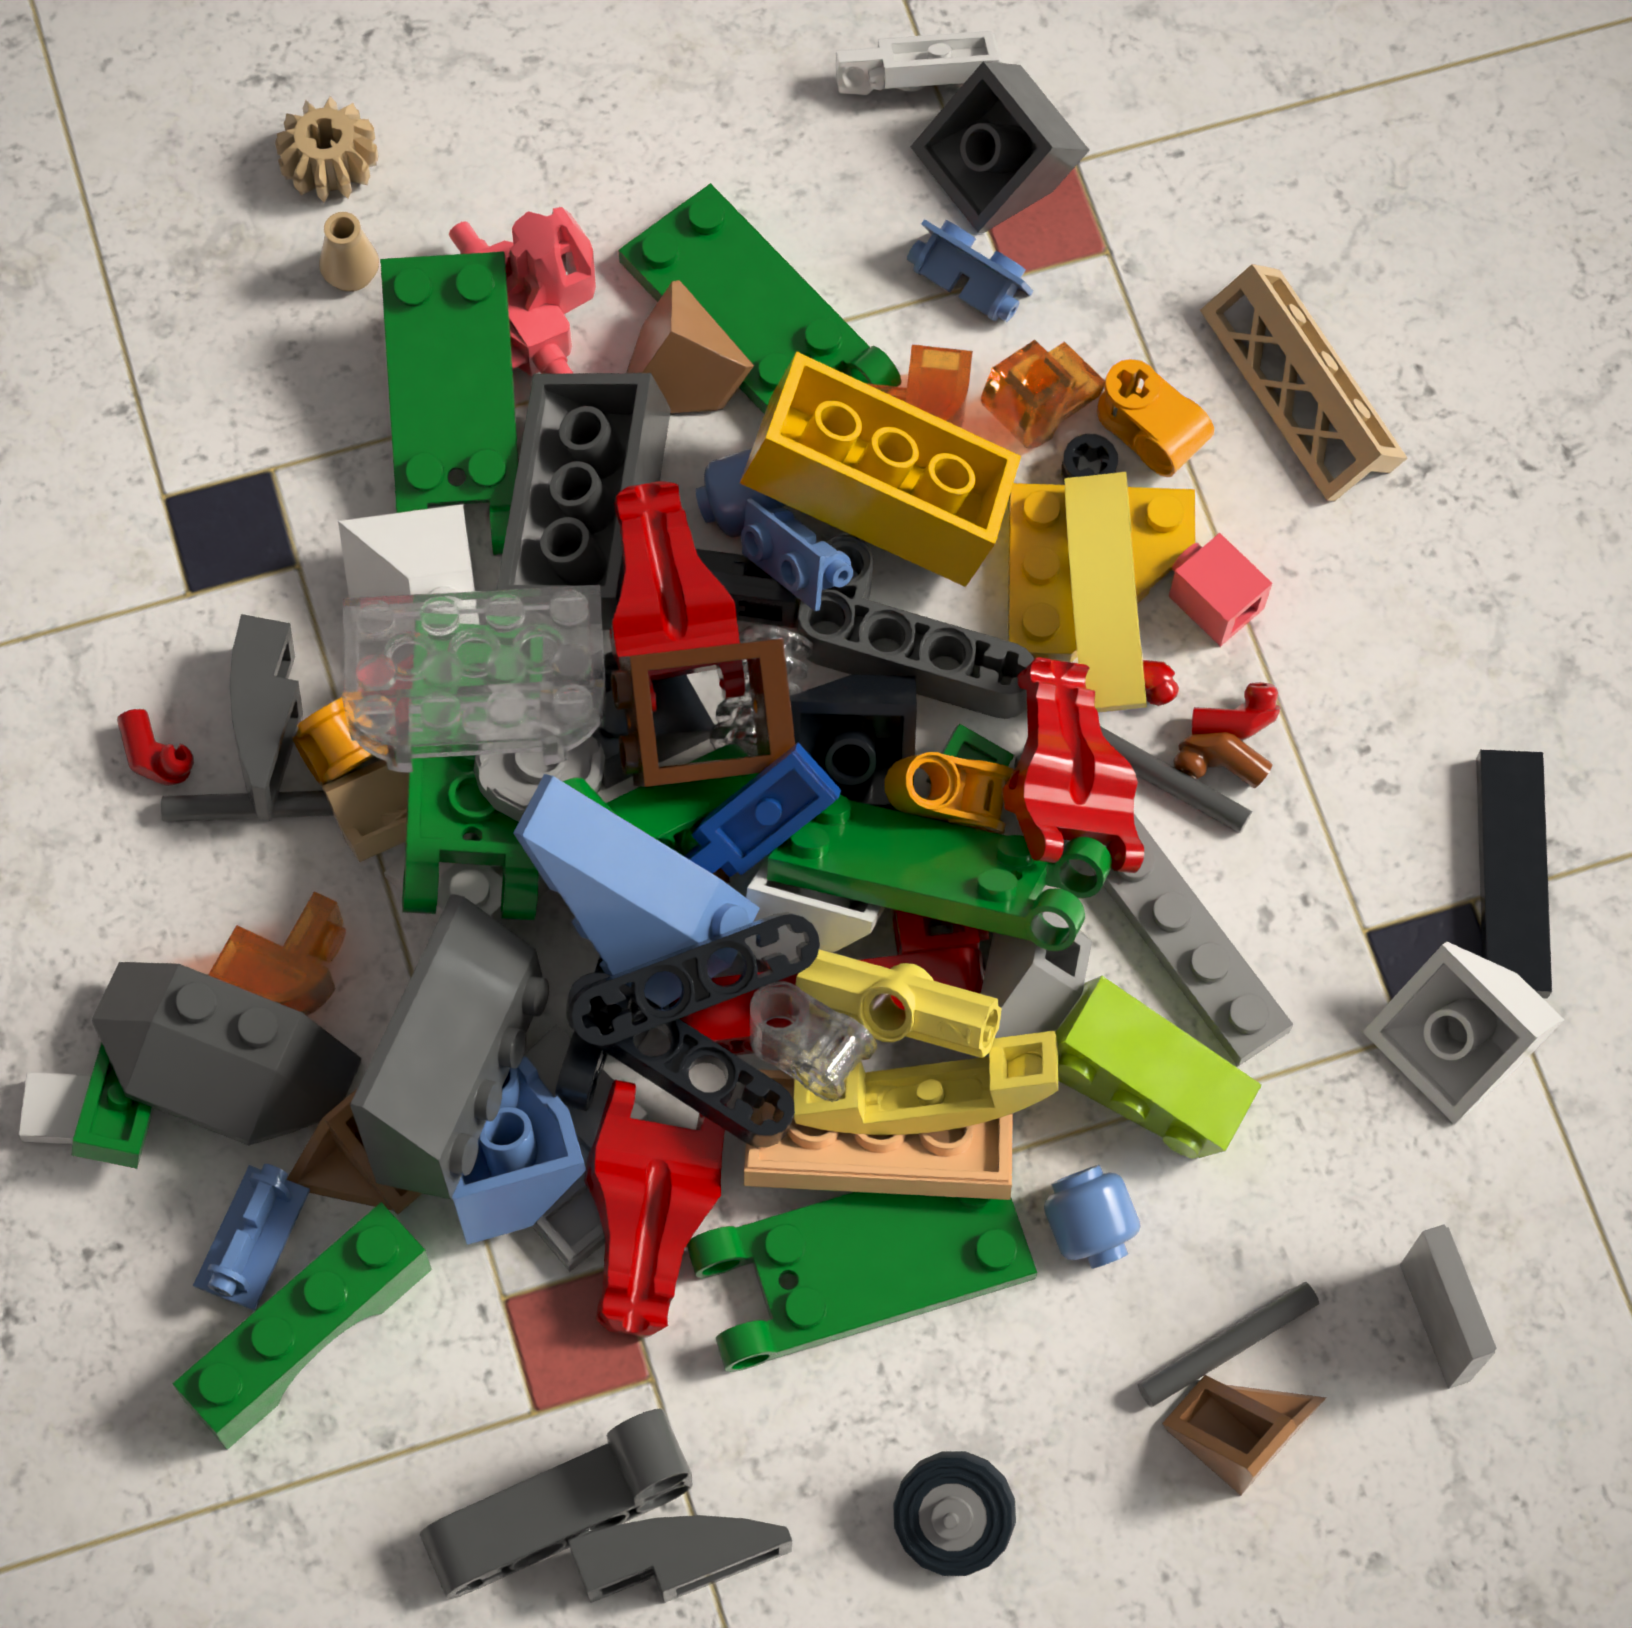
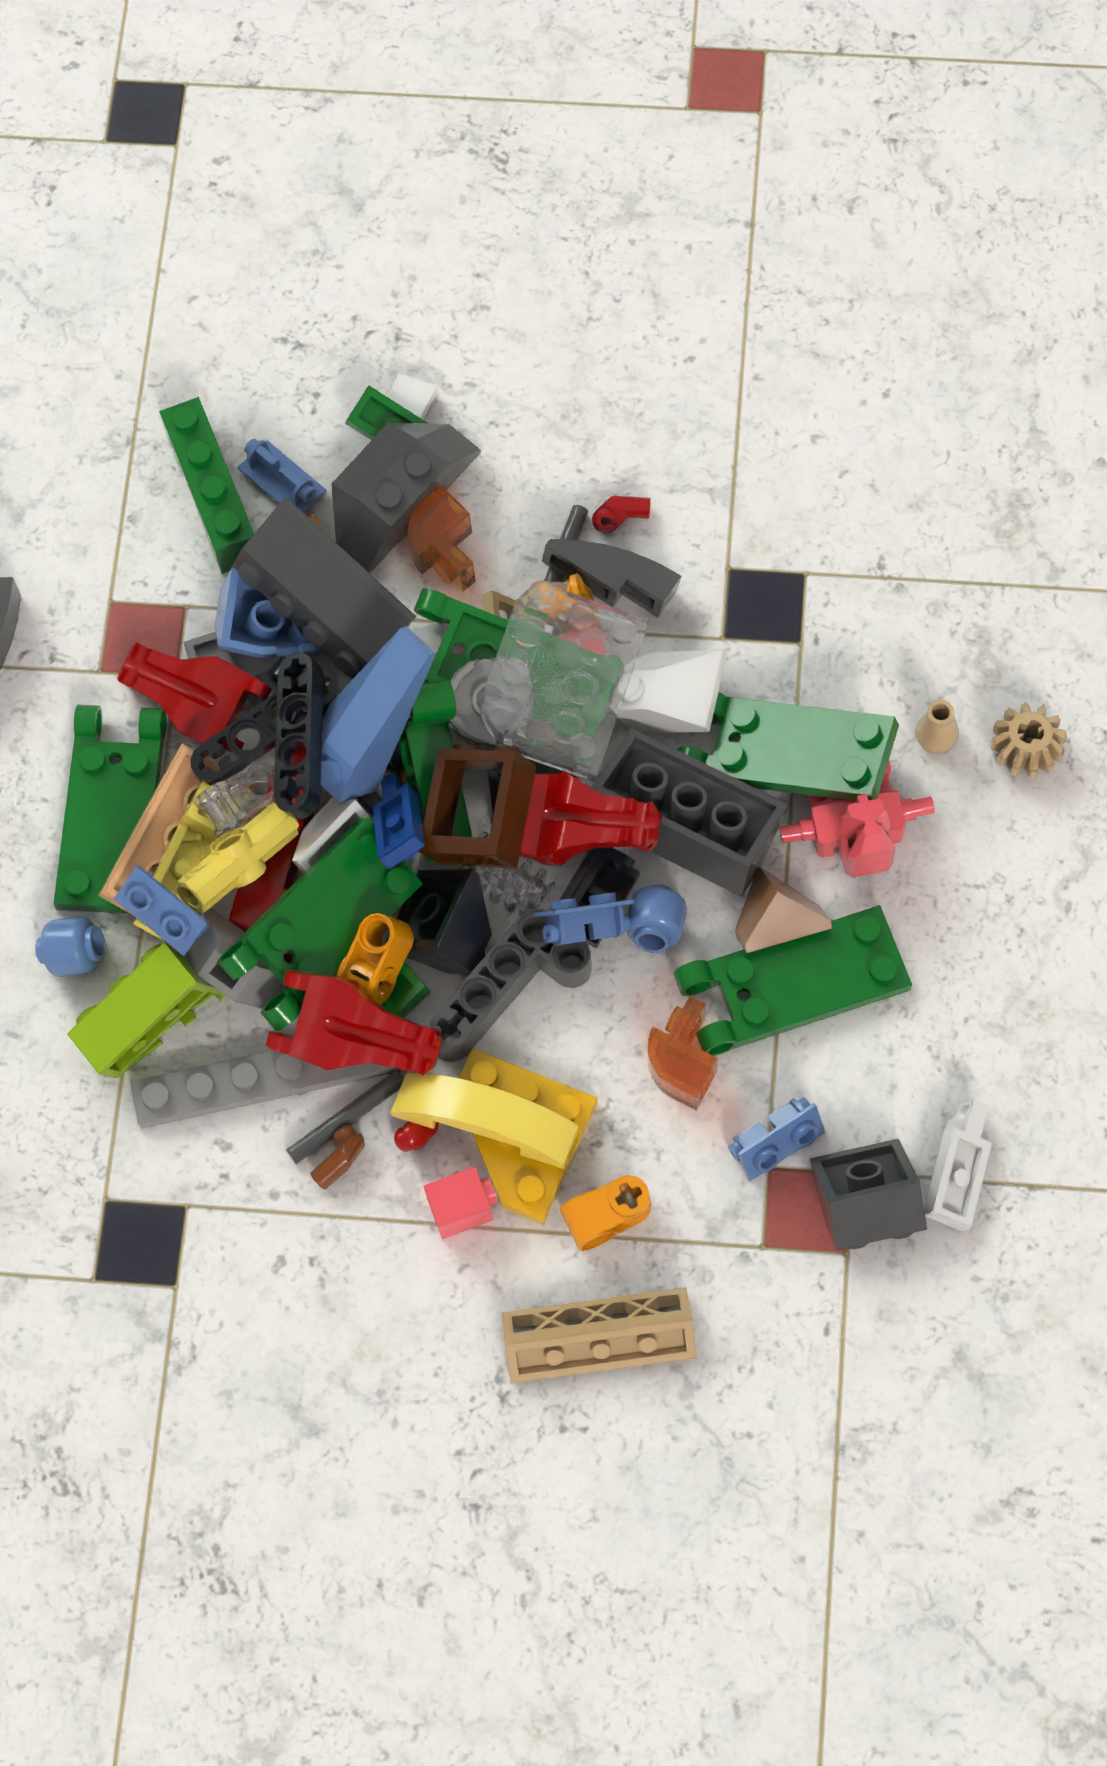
camera: 120 degrees right, 0 degrees up
(538, 1516) = (39, 620): dark grey beam -> none
(881, 470) = (620, 993): yellow brick -> none
(1030, 1046) = (161, 910): none -> medium blue hinge
(1039, 390) = (652, 1137): clear orange brick -> none
(1092, 448) = (580, 1154): black bush -> none
(1246, 719) = (359, 1180): red arm -> none
(1461, 1028) = (81, 1230): white slope -> none
(1514, 864) = (179, 1317): black tile -> none

